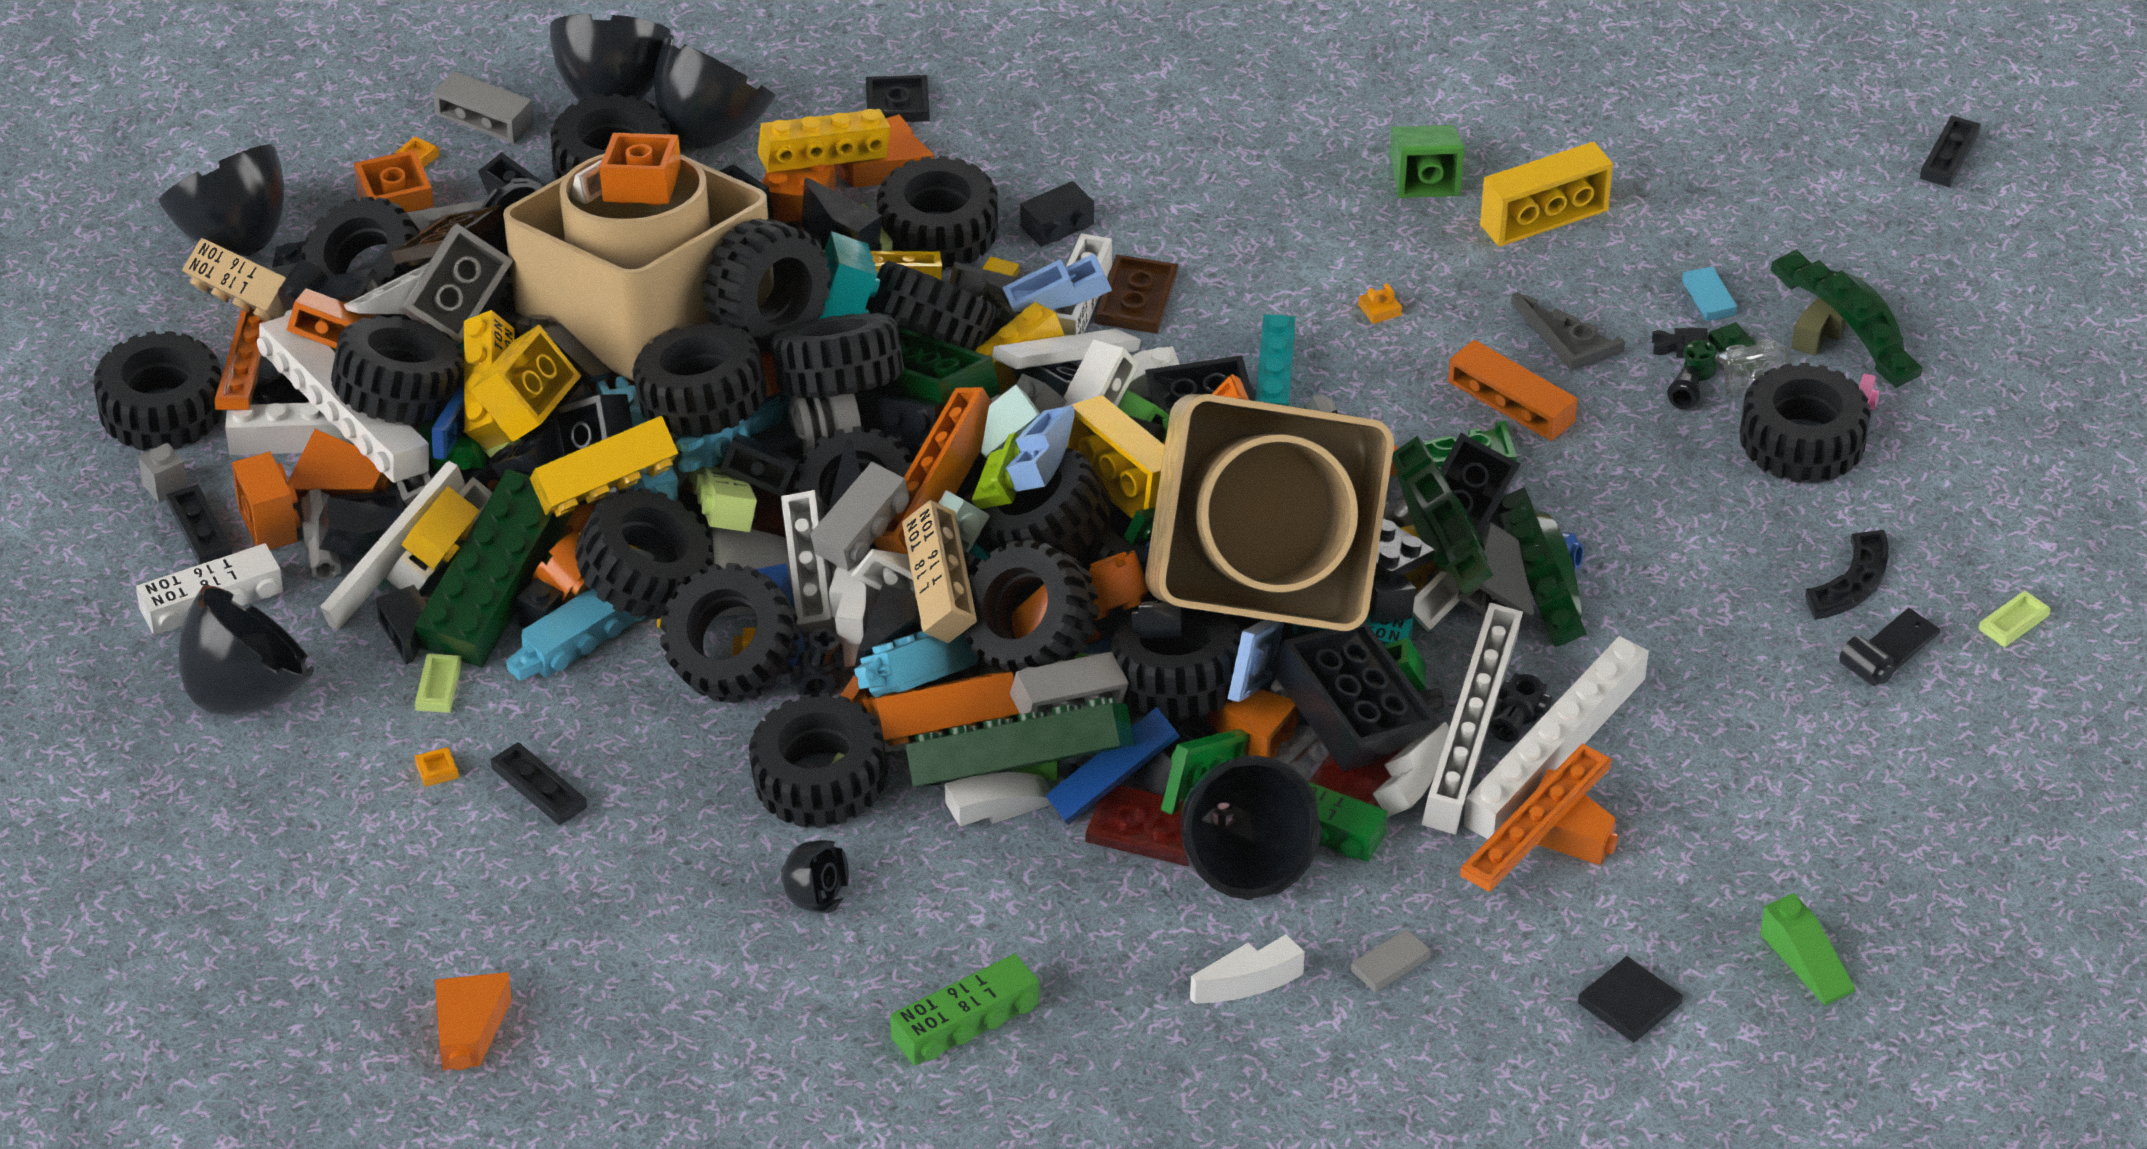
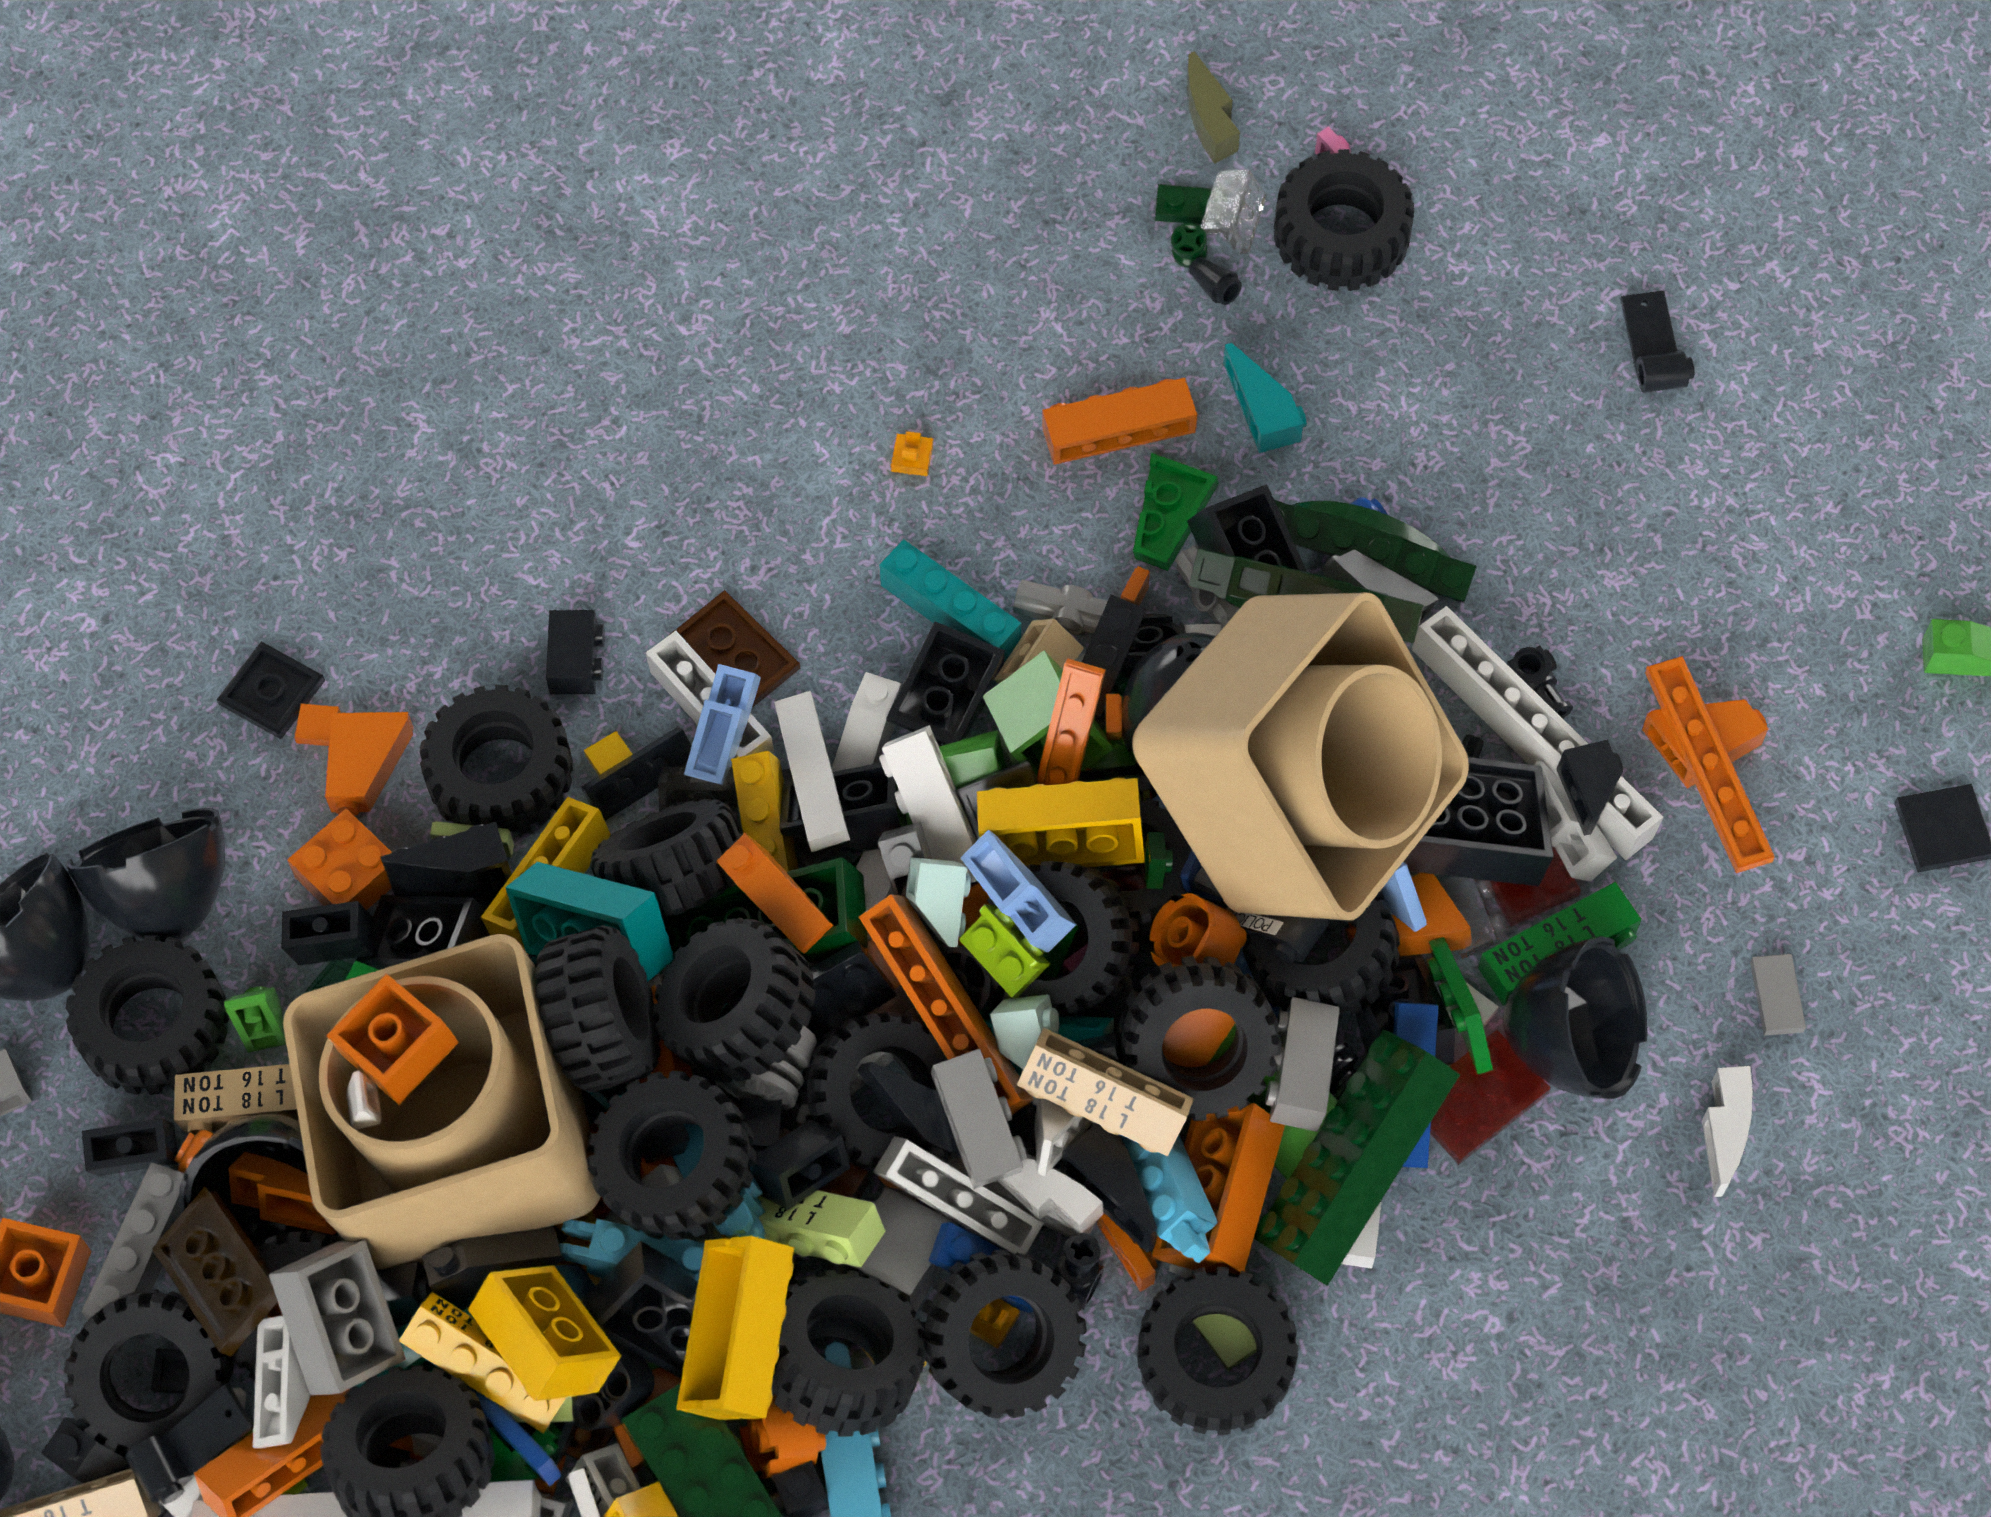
camera: 55 degrees left, 20 degrees up
(813, 869) = (1364, 1450): black cylinder -> none
(823, 140) = (332, 806): yellow brick -> none
(939, 338) = (774, 892): none -> orange slope
(964, 1009) = (1624, 1411): bright green brick -> none
(1427, 161) = (751, 284): bright green slope -> none
(1443, 741) = (1589, 780): none -> black slope
(1546, 193) = (886, 222): yellow brick -> none
(1556, 735) = (1599, 673): white brick -> none
(1566, 335) = (1076, 328): dark grey wing -> none
(1601, 461) = (1264, 402): none -> teal slope
(1676, 342) = (1148, 239): black plate -> none
(1709, 293) = (1100, 179): medium azure tile -> none
(1859, 307) = (1220, 78): dark green piece -> none
(1860, 580) = (1546, 305): black tile -> none
(2014, 618) = (1678, 225): yellowish green tile -> none

